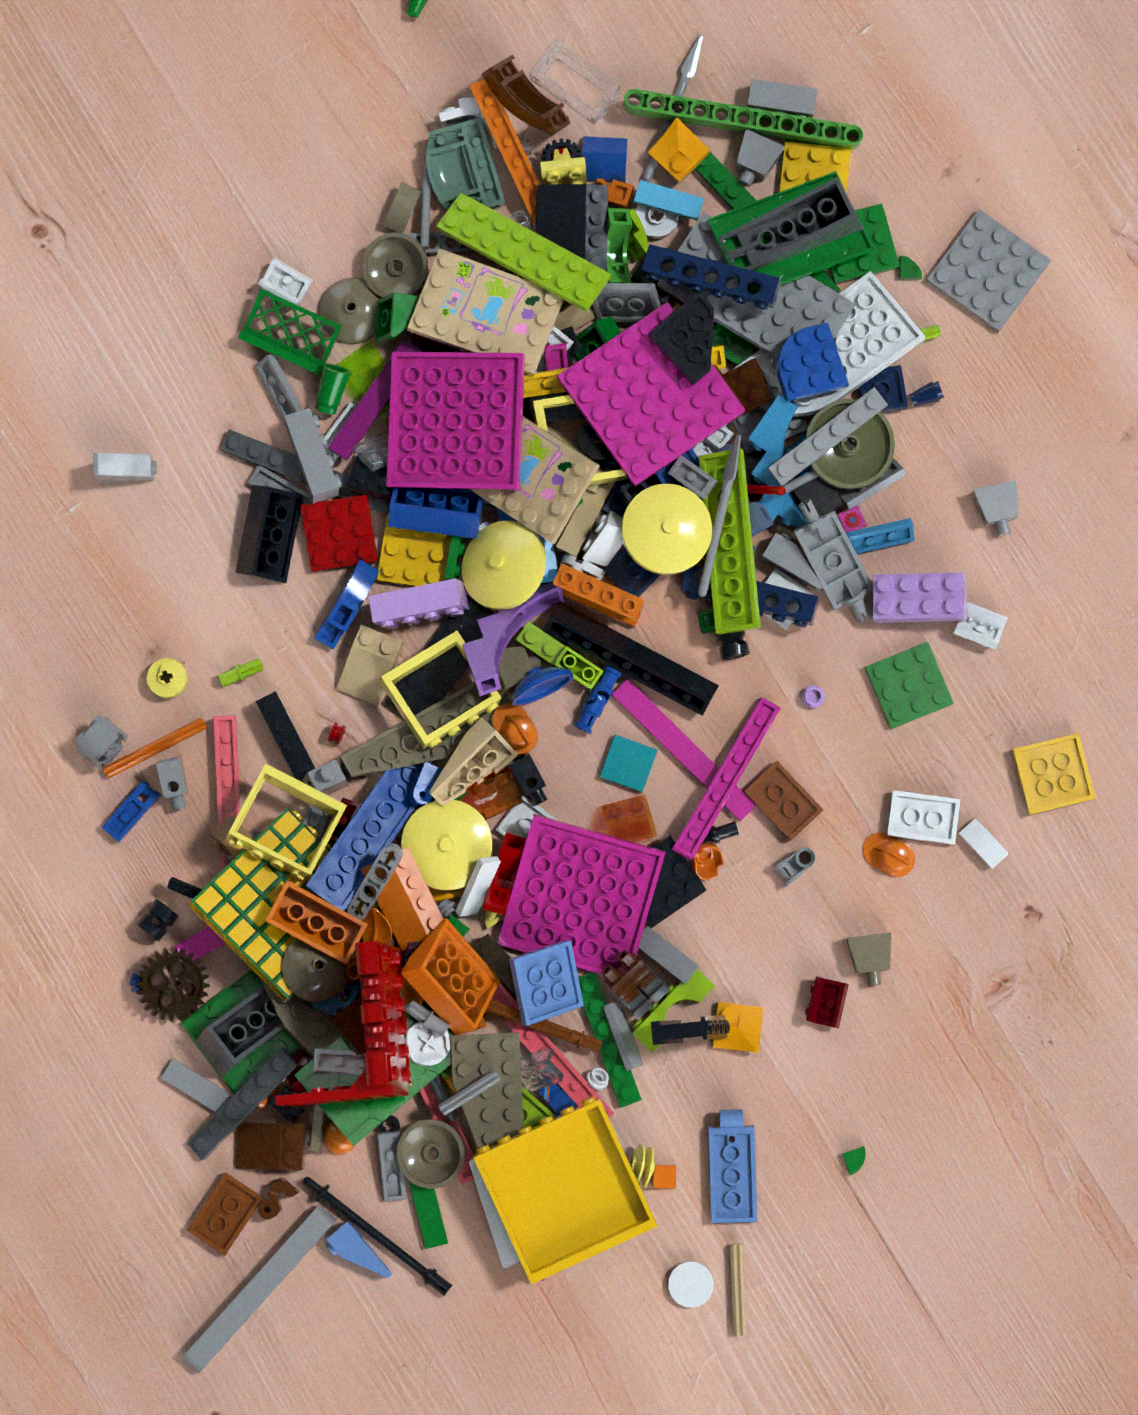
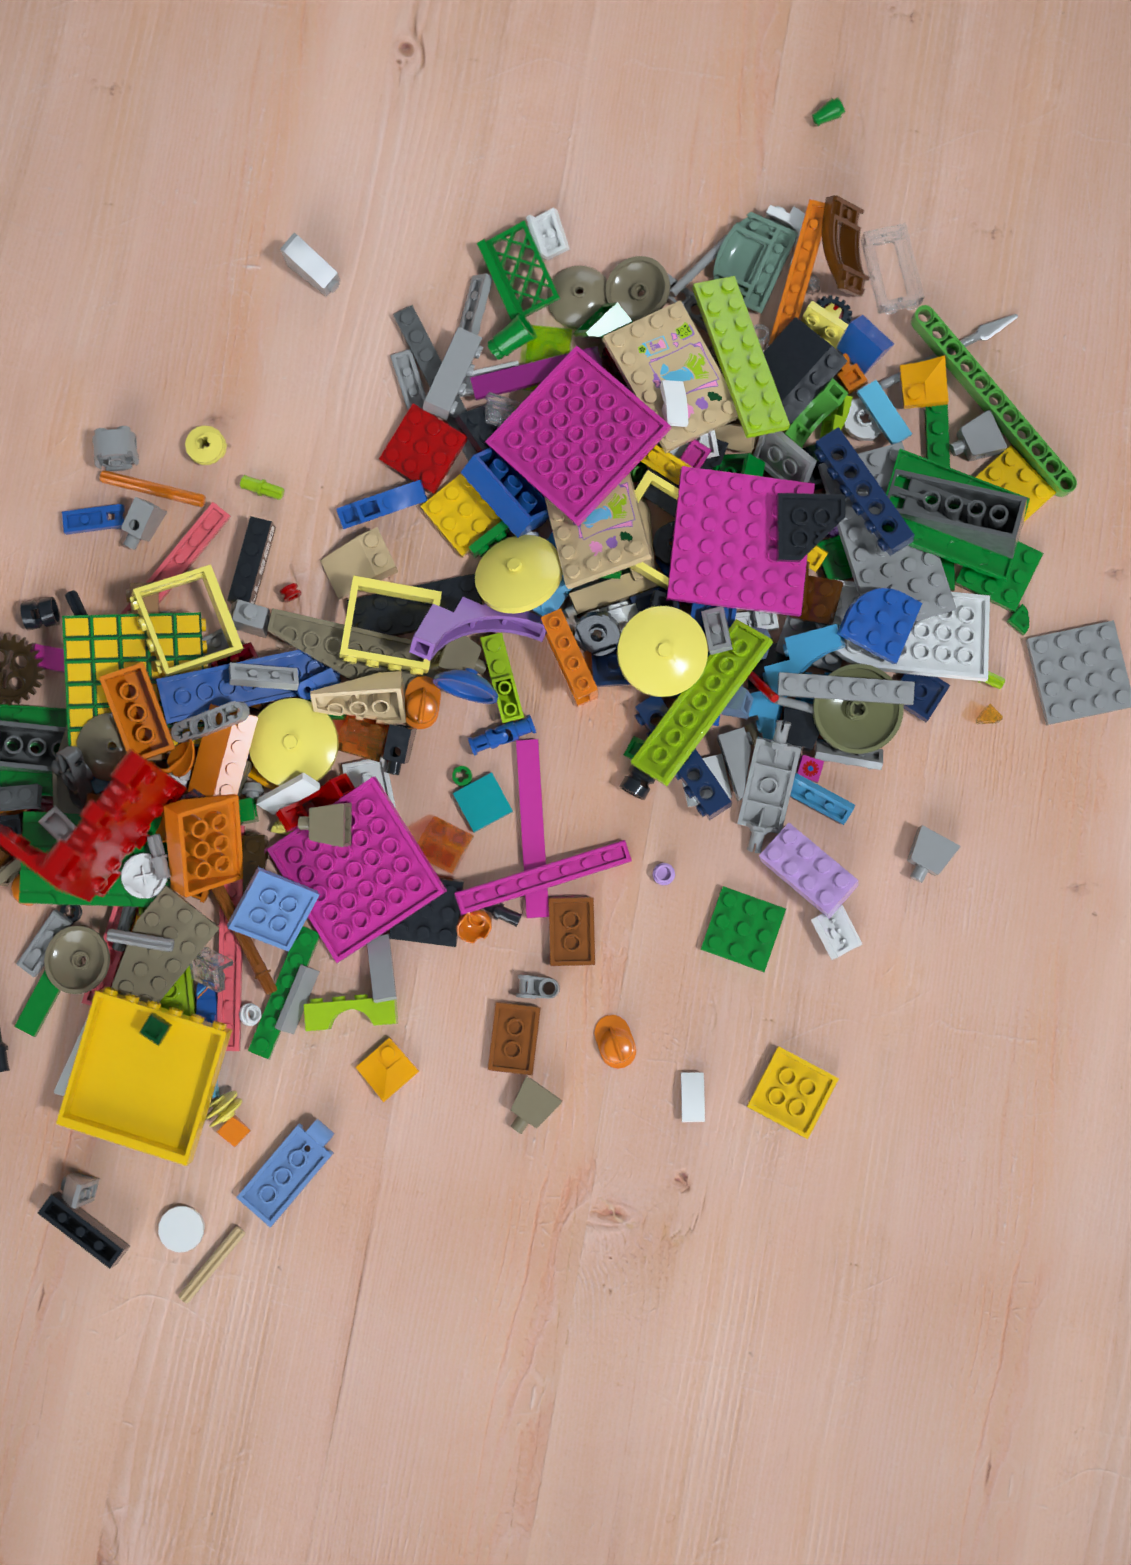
camera: 45 degrees right, 0 degrees up
(269, 533) = (372, 404): black slope -> none
(308, 1011) = (74, 773): none -> dark grey piece
(381, 813) = (263, 676): none -> light grey plate
(402, 208) = (681, 252): dark tan slope -> none
(419, 603) = (432, 547): lavender brick -> none
(509, 331) = (675, 403): none -> white slope
(532, 880) = (329, 824): none -> dark tan torso
(544, 1144) = (155, 1029): none -> dark green tile
(587, 1323) = (79, 1189): none -> light grey slope
(598, 549) = (597, 621): none -> plate
(601, 759) = (466, 781): none -> green bush
(619, 1349) = (84, 1230): none -> black brick
(628, 977) = (338, 968): reddish brown hips -> none
(631, 658) = (553, 726): black brick -> none
(674, 1031) = (337, 1035): black fence -> none
(729, 476) = (743, 653): light grey piece -> none
(782, 98) = (1038, 410): light grey brick -> none
(812, 919) = (514, 1038): none -> dark orange plate
(826, 1002) = (468, 1110): dark red bracket -> none
(854, 1159) = (385, 1246): green tile -> none
(923, 817) = (665, 1037): white plate -> none
(927, 394) = (950, 724): dark blue cone -> none
(949, 363) = (989, 716): none -> clear yellow slope

